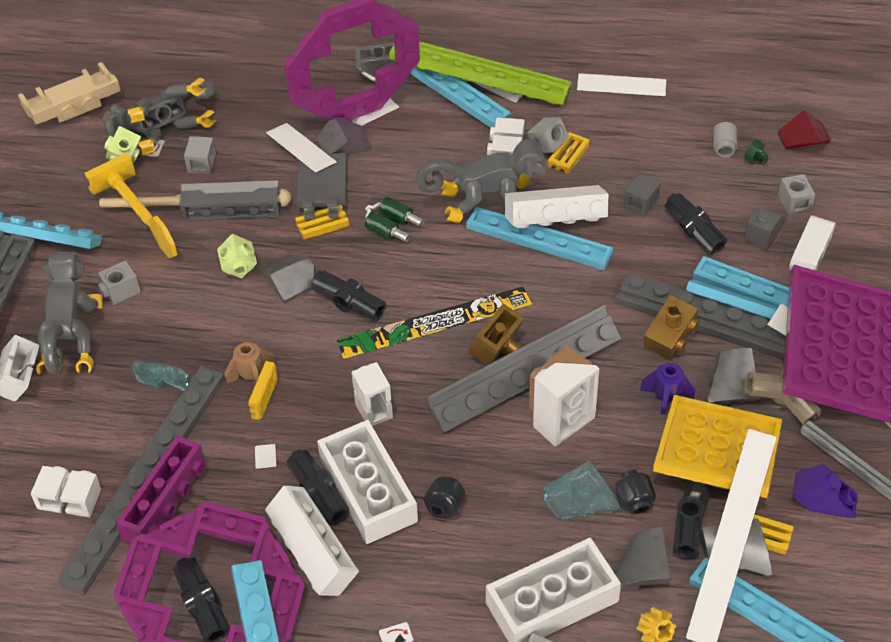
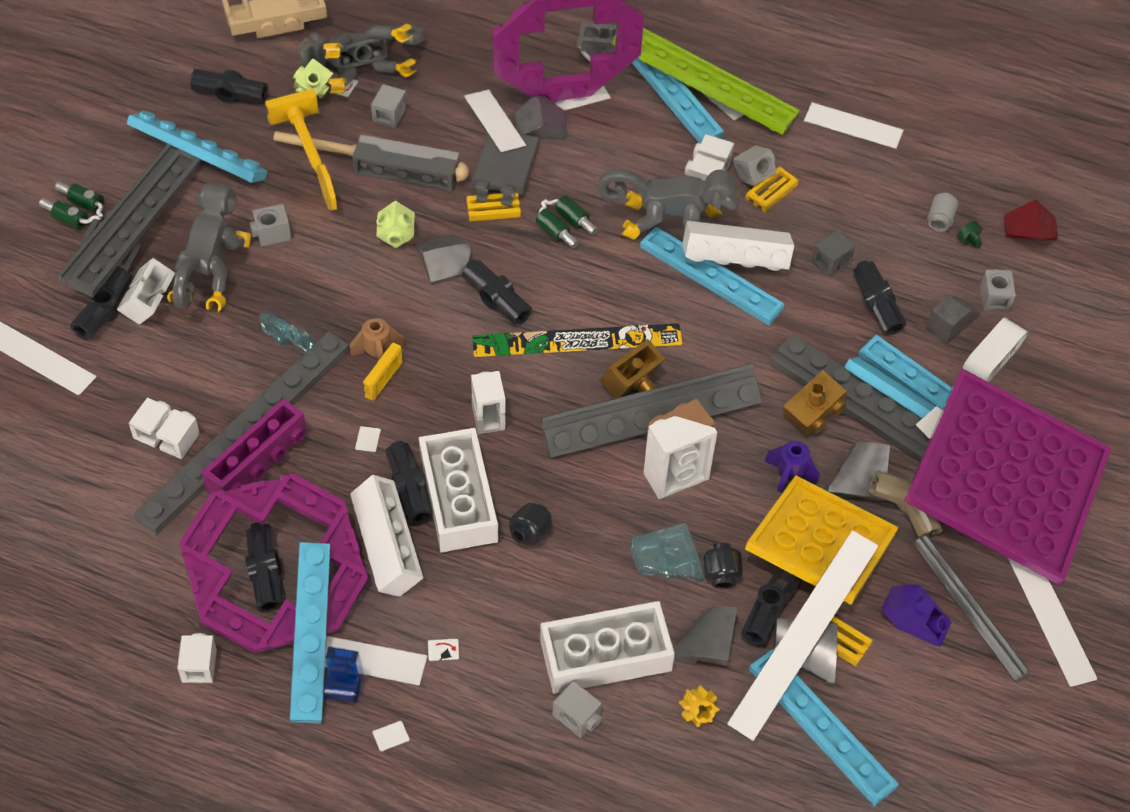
camera: 10 degrees right, 5 degrees up
(44, 169) = (229, 86): none -> black piece

